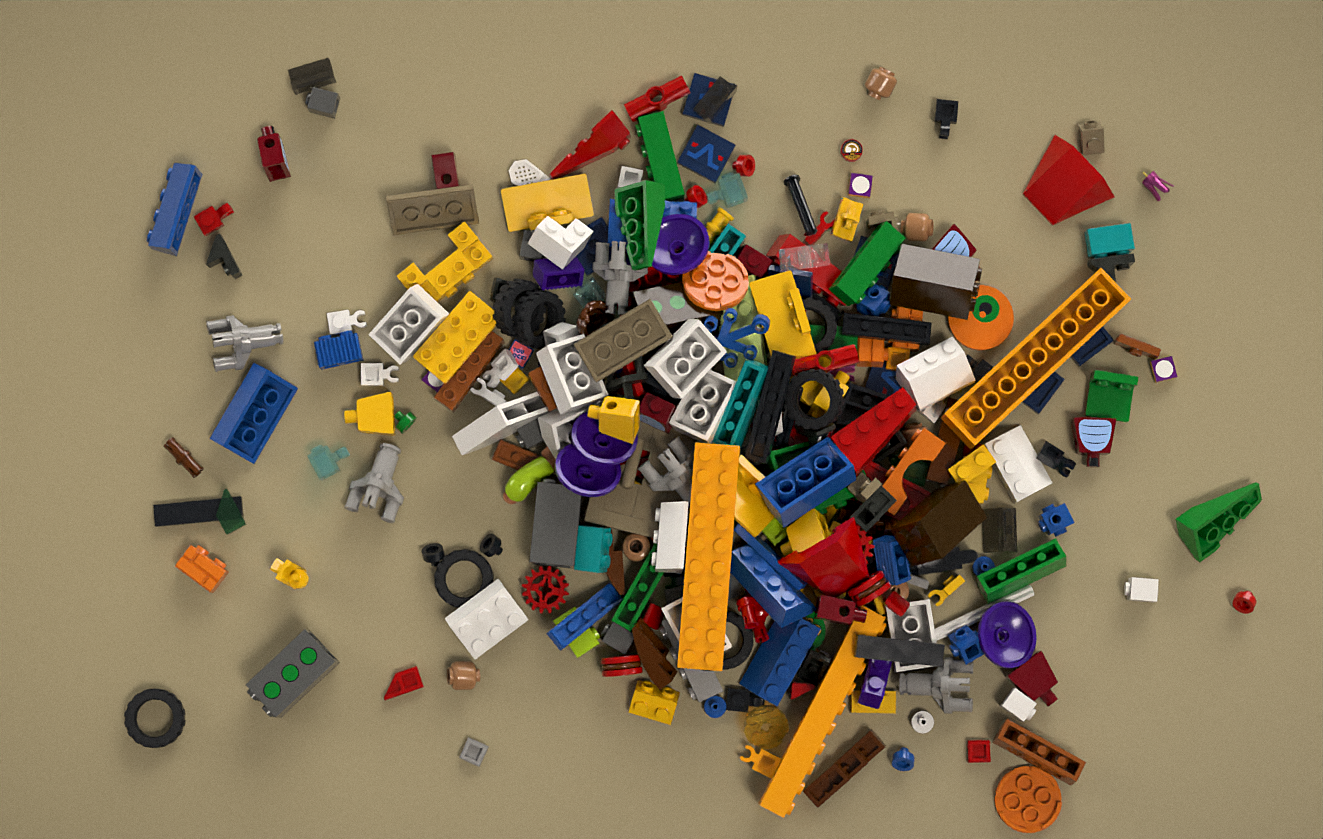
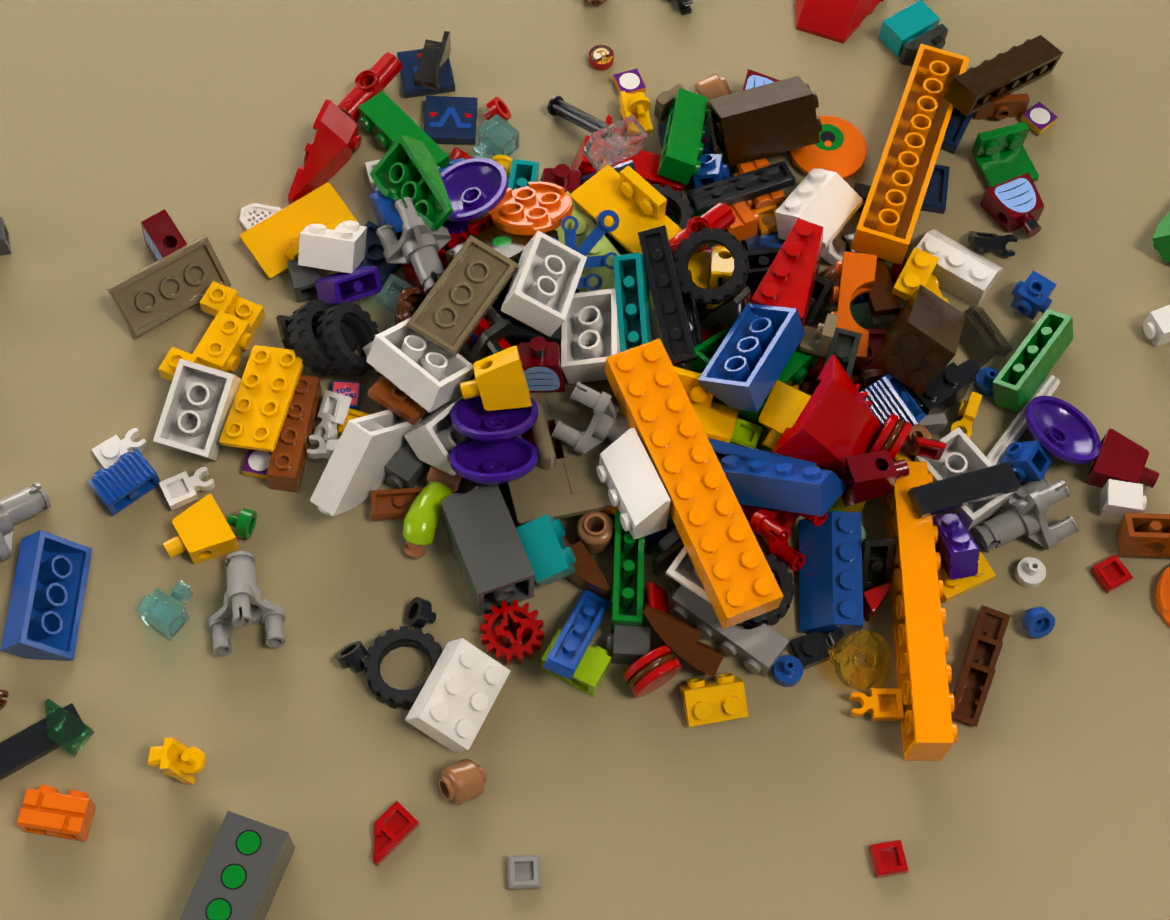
camera: 30 degrees left, 20 degrees down
(1148, 327) = (1002, 75): none -> dark brown brick

